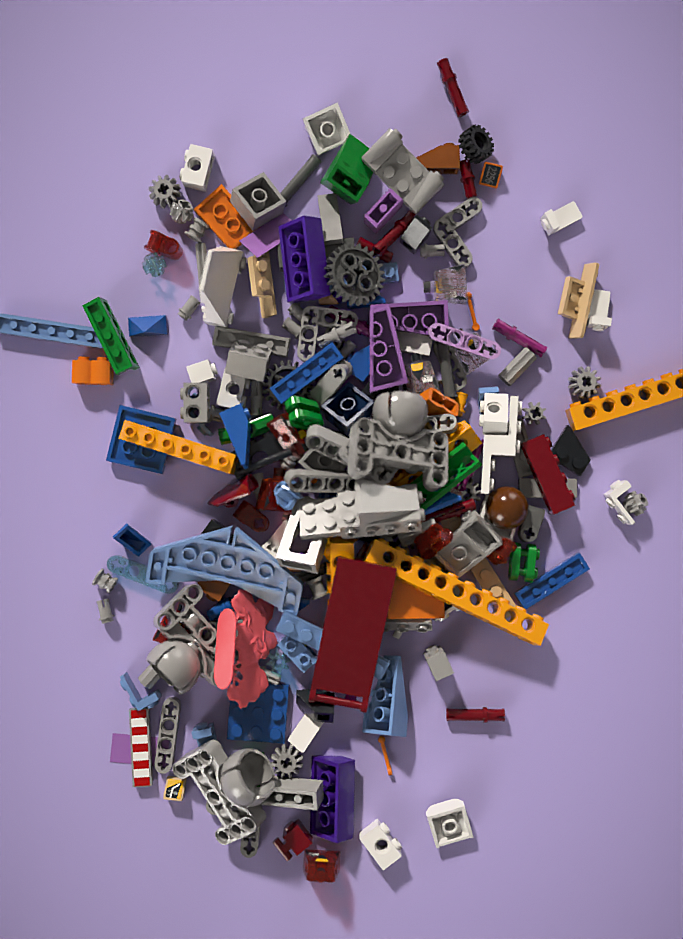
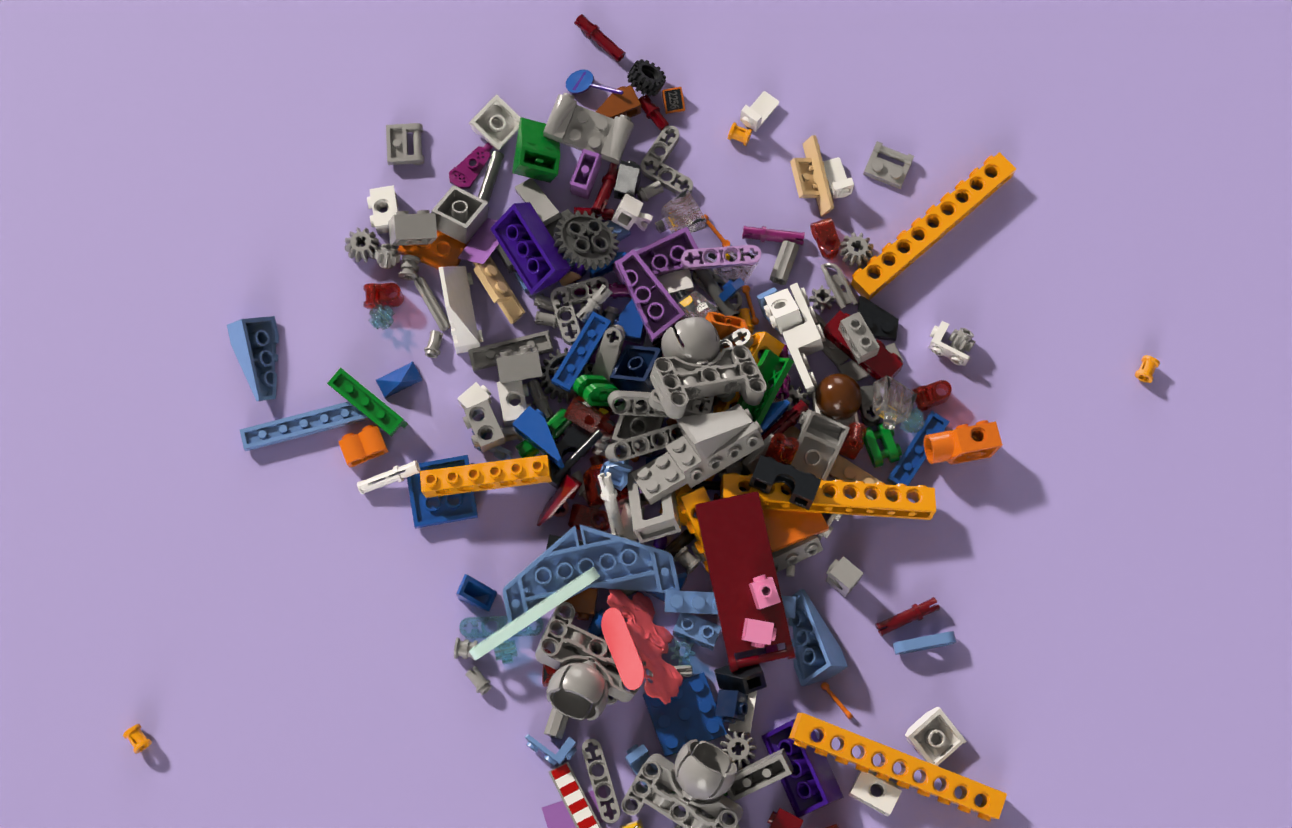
camera: 25 degrees left, 15 degrees down
(37, 251) = (255, 348): none -> medium blue wedge
(84, 407) = (410, 469): none -> white pin
(136, 597) = (506, 651): none -> clear light blue gear
(168, 583) = (534, 613): none -> light aqua beam
(209, 198) = (412, 228): none -> light grey brick
(234, 111) = (398, 146): none -> light grey plate
(272, 512) = (609, 496): none -> white pin
(283, 162) = (467, 172): none -> magenta piece
(297, 725) = (731, 706): none -> dark blue brick
(343, 684) = (758, 632): none -> bright pink brick
(363, 655) = (764, 591): none -> bright pink brick
(404, 264) = (629, 213): none -> white brick
(419, 121) = (582, 80): none -> blue piece
(436, 582) = (802, 485): none -> black arch
(459, 373) = (731, 288): none -> blue plate
(471, 891) = (992, 799): none -> light orange brick
(473, 375) = (746, 289): none -> orange hinge
(478, 743) = (924, 643): none -> medium blue beam
(534, 232) = (739, 134): none -> light orange bush
(548, 468) = (858, 337): none -> light grey brick
(549, 534) = (892, 401): none -> clear torso
(550, 404) = (834, 282): none -> light grey piece
(558, 554) = (914, 422): none -> clear light blue gear
(564, 356) = (826, 237): none -> clear red piece
(583, 539) = (928, 397): none -> clear red piece
(591, 595) = (963, 443): none -> orange brick
(645, 322) = (887, 171): none -> light grey plate

